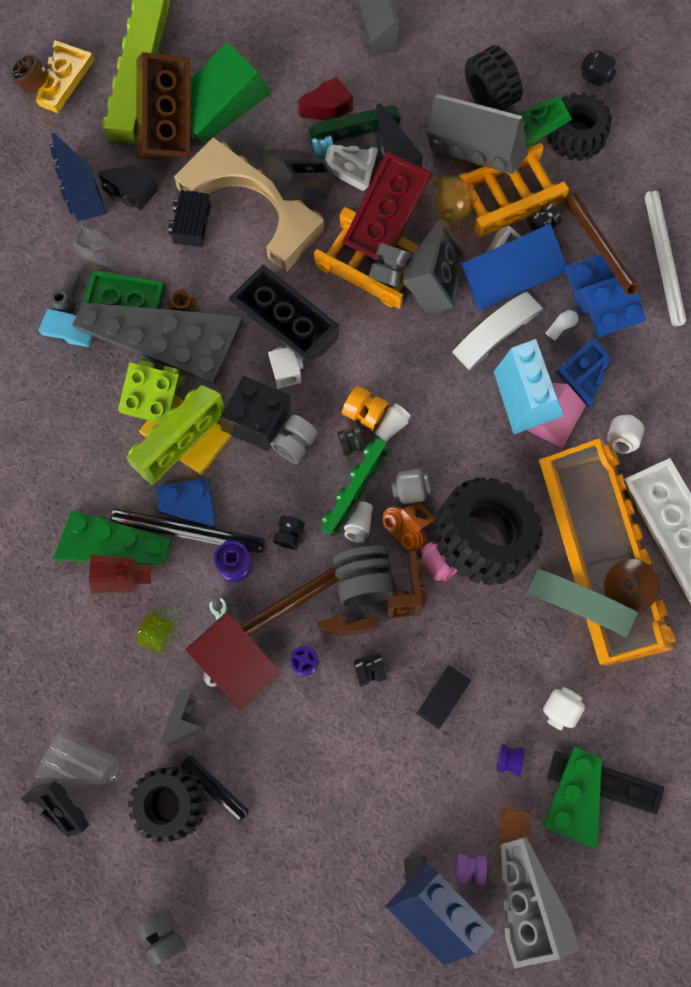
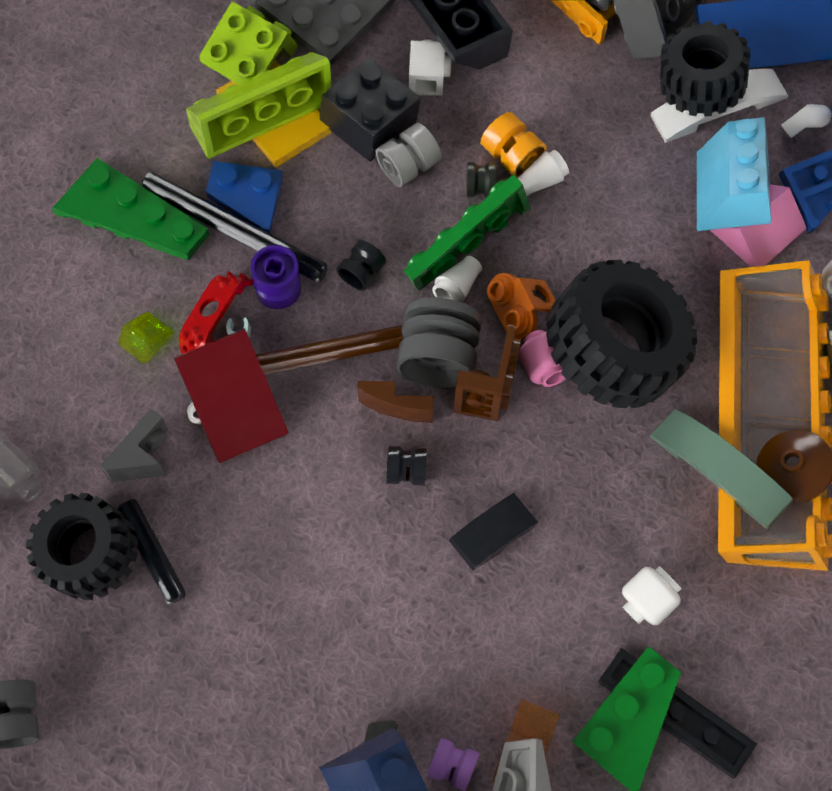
camera: 15 degrees right, 5 degrees down
(105, 572) = (120, 246): clear red torso -> none
(191, 618) = (198, 328): none -> red piece
(305, 656) = (324, 420): dark purple wheel -> none
(411, 486) = (540, 256): light grey head -> none
(478, 295) = (710, 48): none -> black tyre
(510, 759) = (555, 638): dark purple wheel -> none

